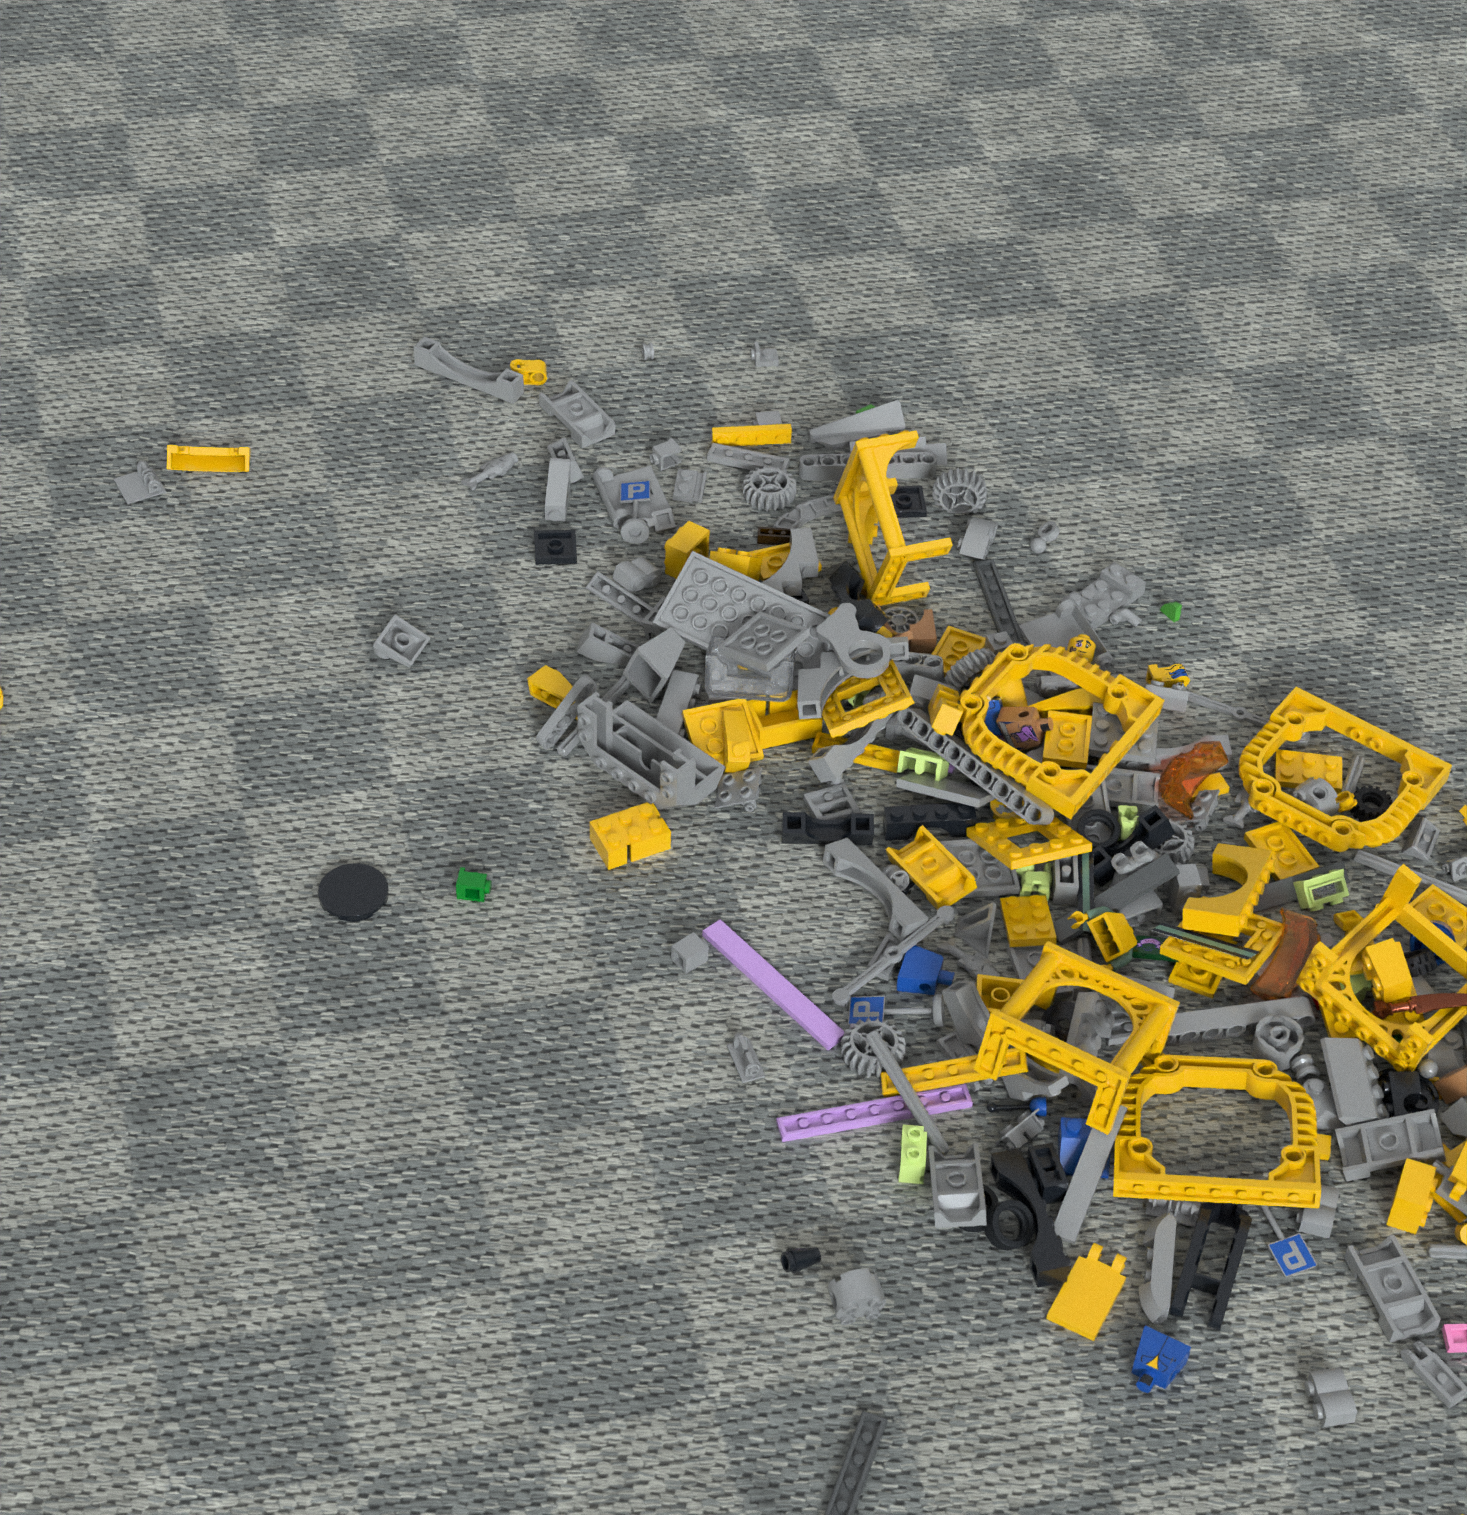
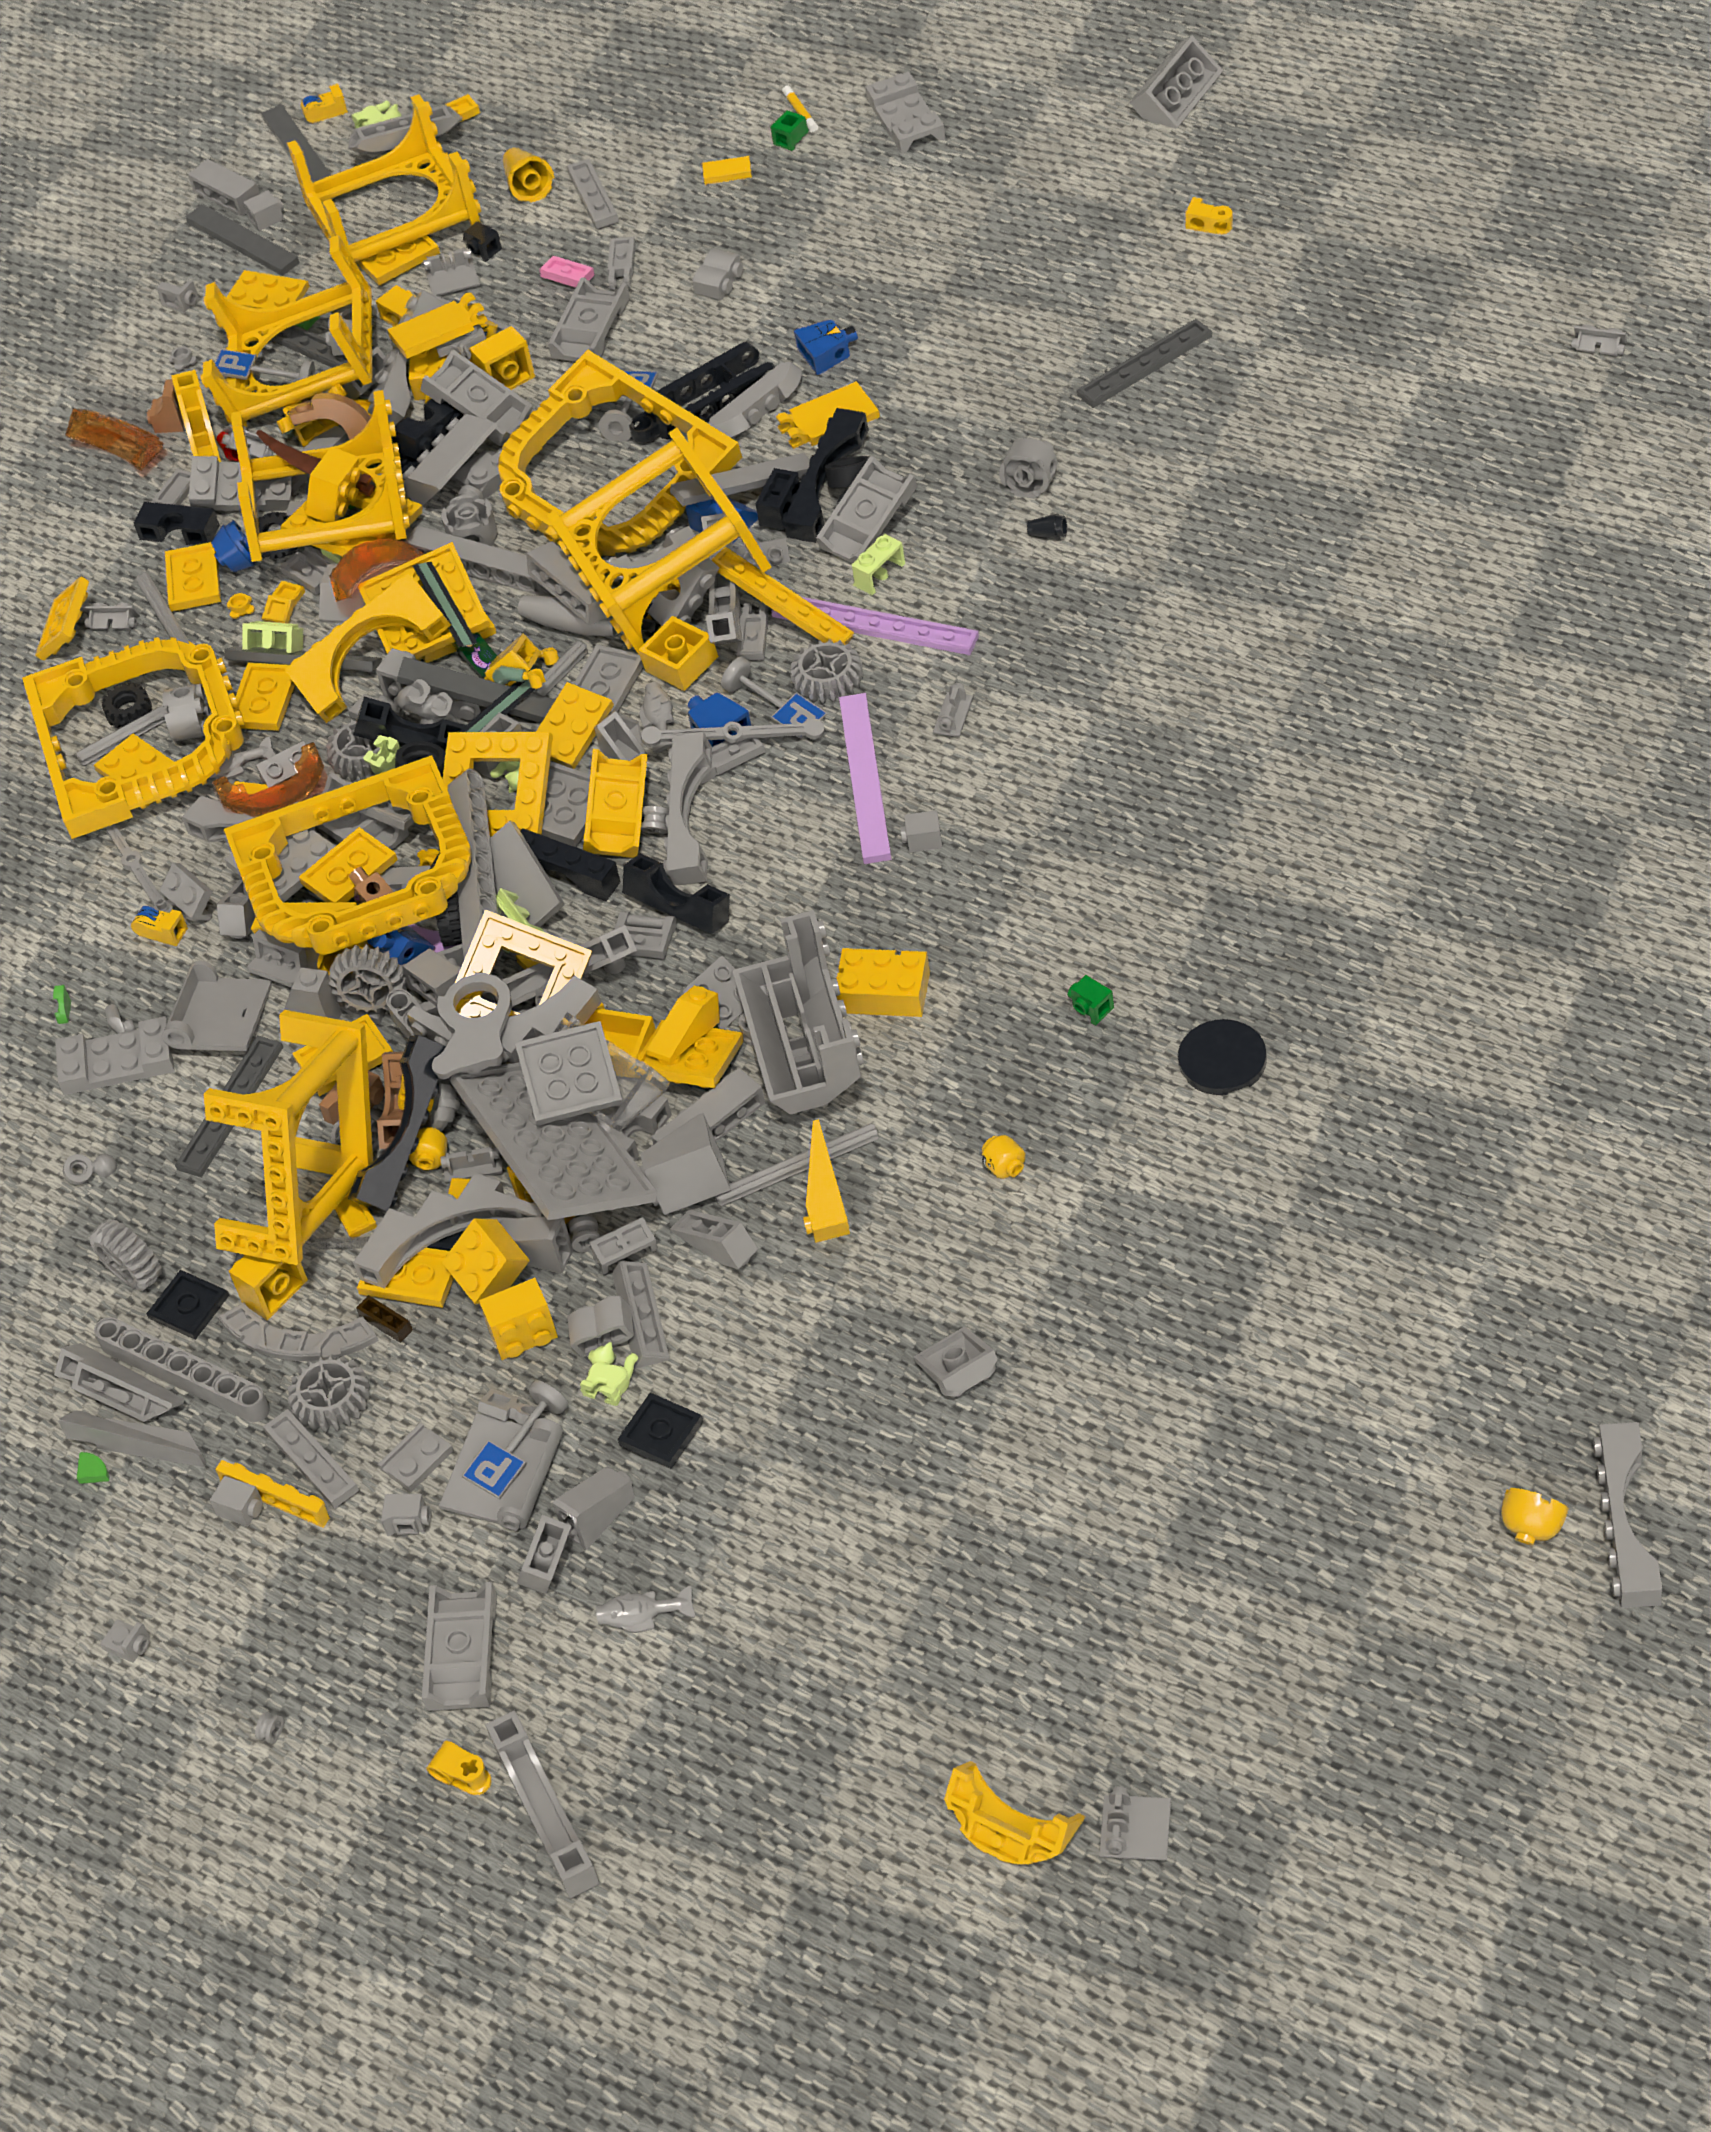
camera: 135 degrees left, 5 degrees up
(459, 765) = (1003, 1156): none -> yellow head
(552, 730) = (815, 1120): light grey beam -> none
(609, 557) = (605, 1377): none -> yellowish green animal
(907, 1091) = (836, 608): light grey axle -> none
(944, 710) = (467, 897): yellow arch -> none
(978, 538) = (166, 1190): light grey brick -> none
(1083, 646) = (217, 982): yellow head -> none
(1346, 801) = (145, 706): yellow plate -> none

